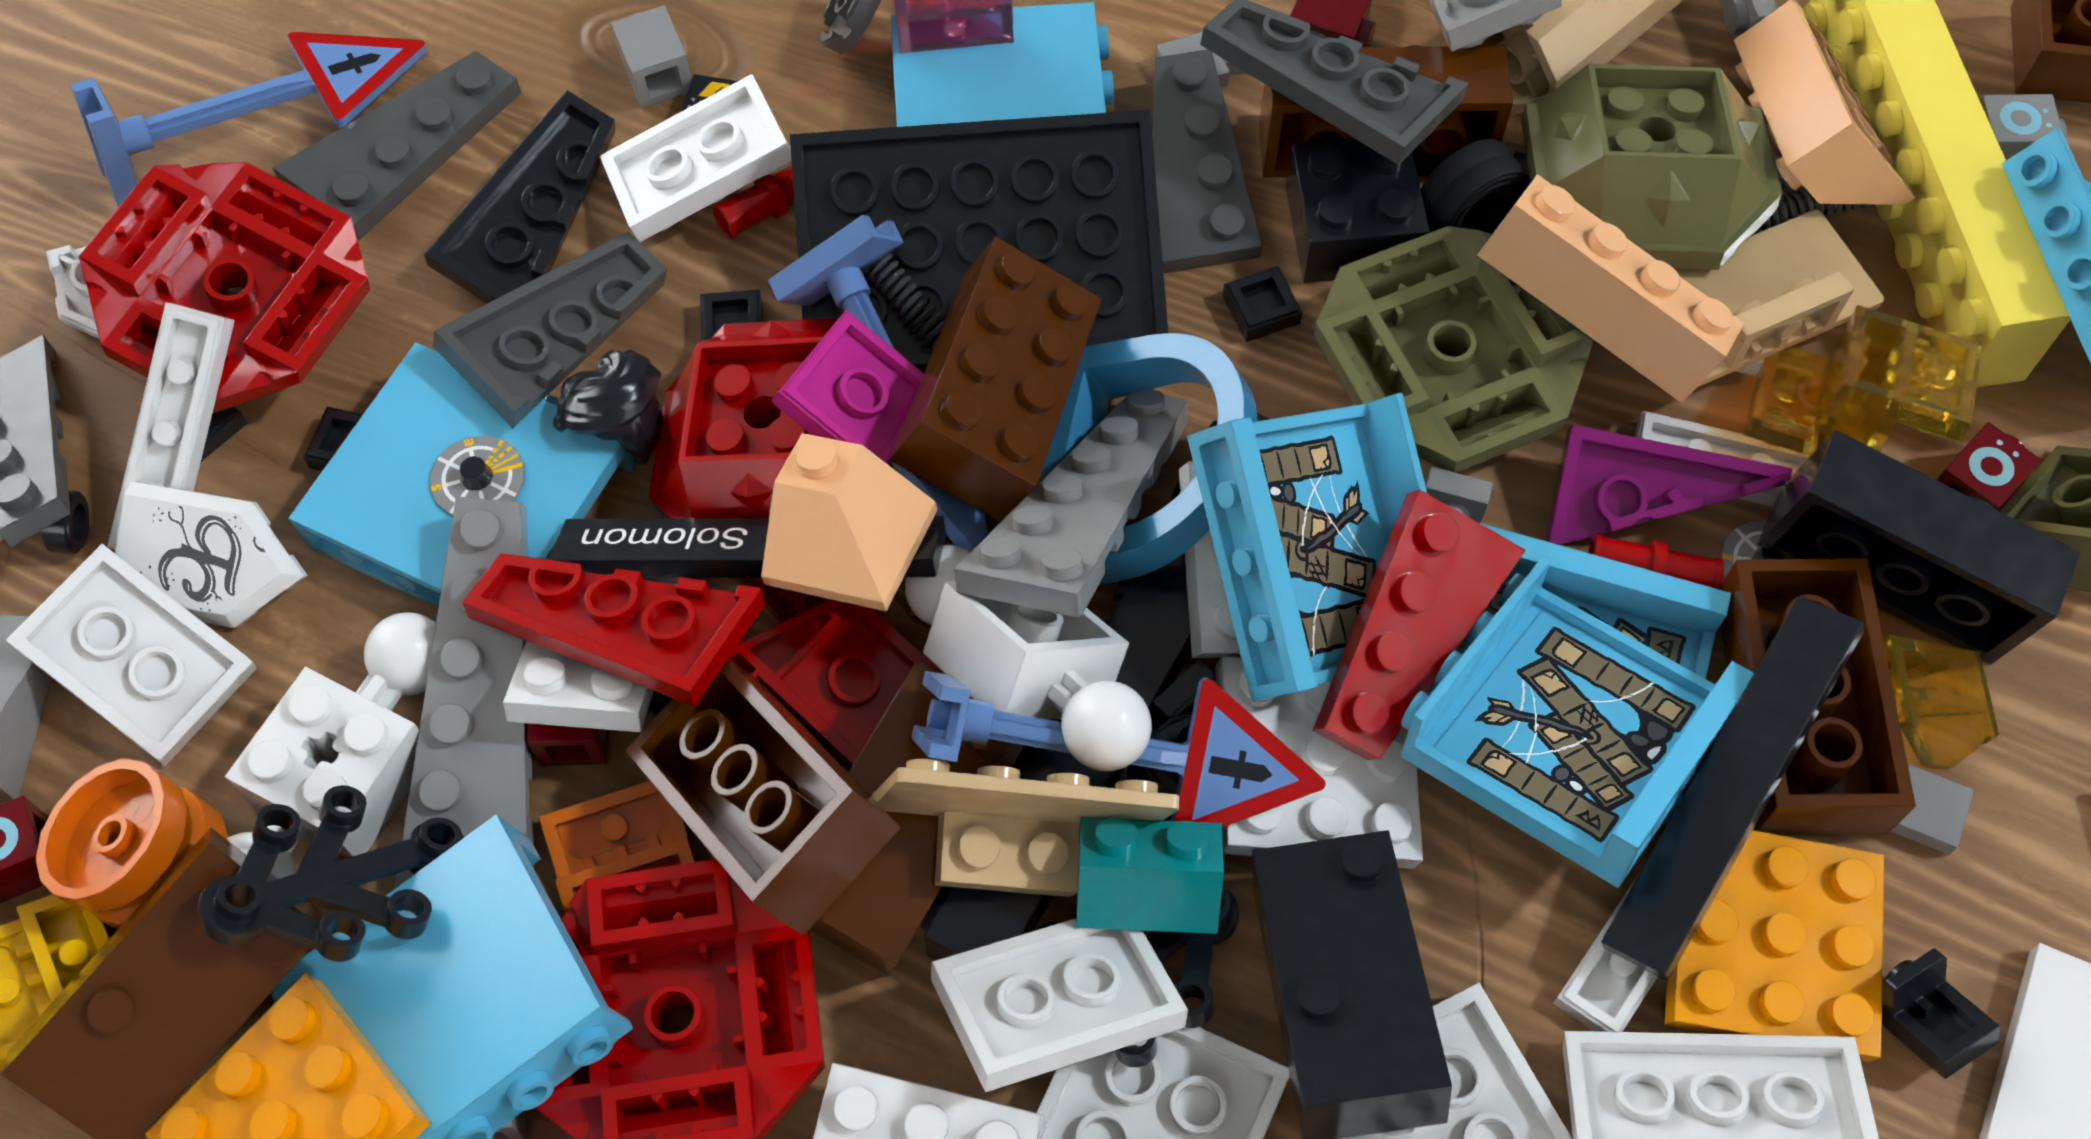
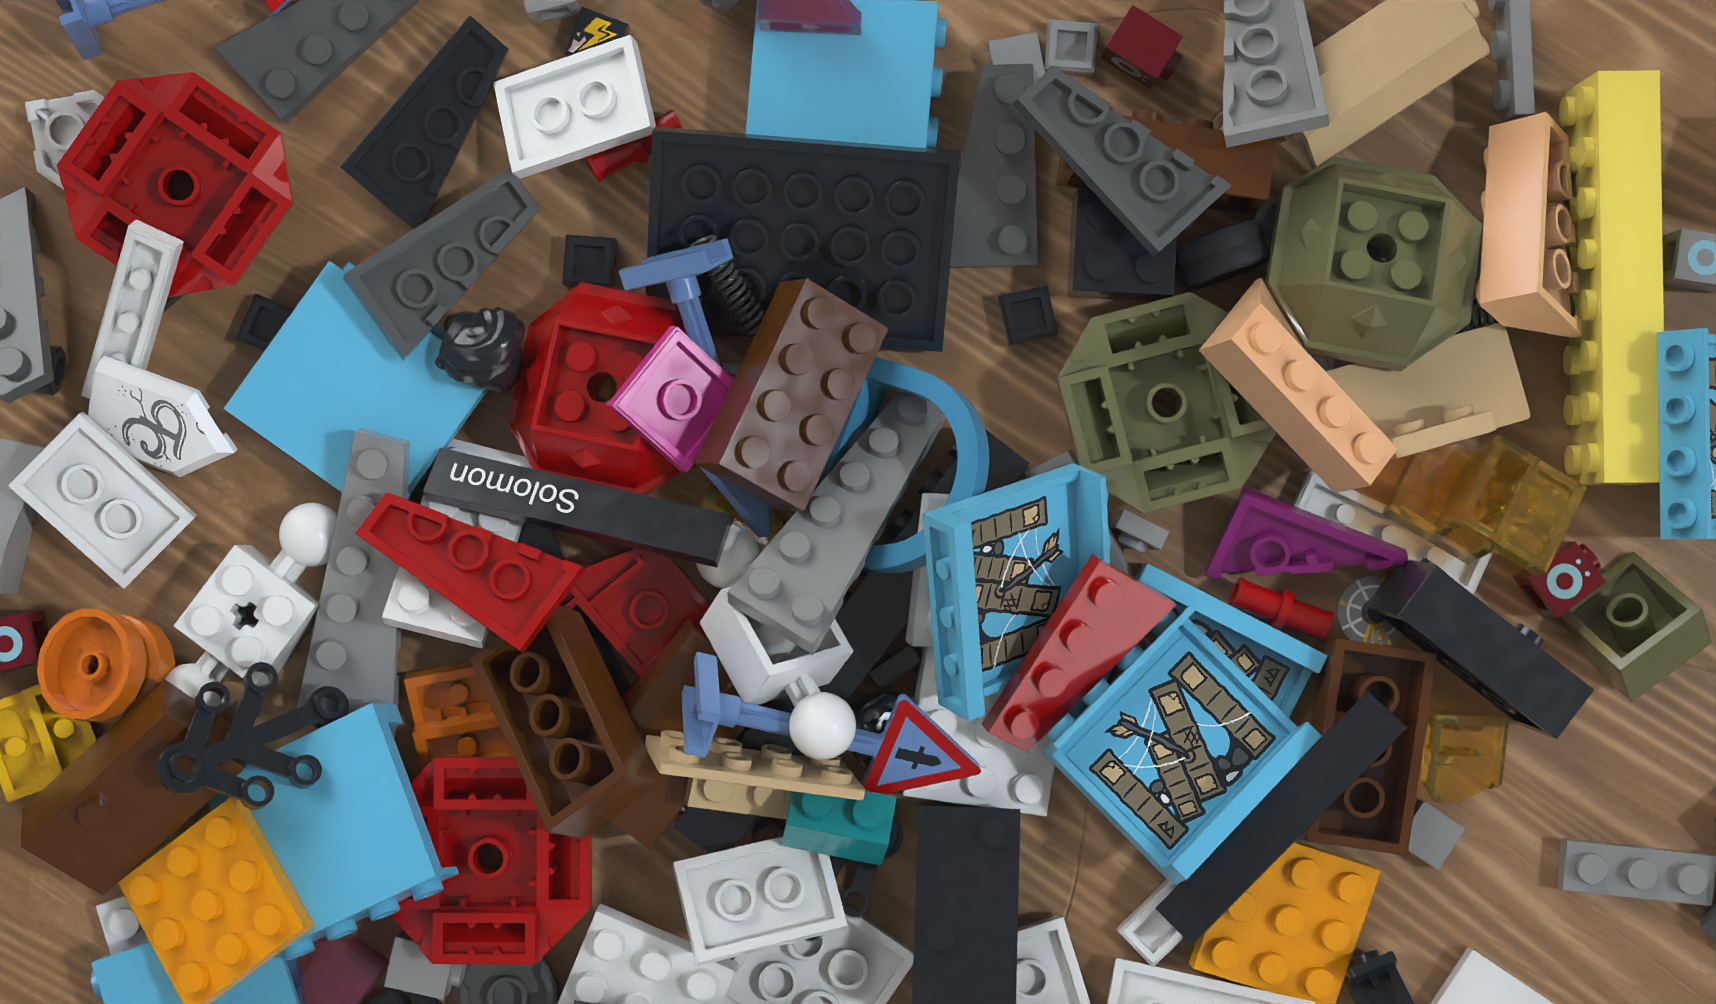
camera: 10 degrees right, 25 degrees up
(477, 469) = (372, 396): piece -> none
(843, 524) = (651, 526): light nougat slope -> none

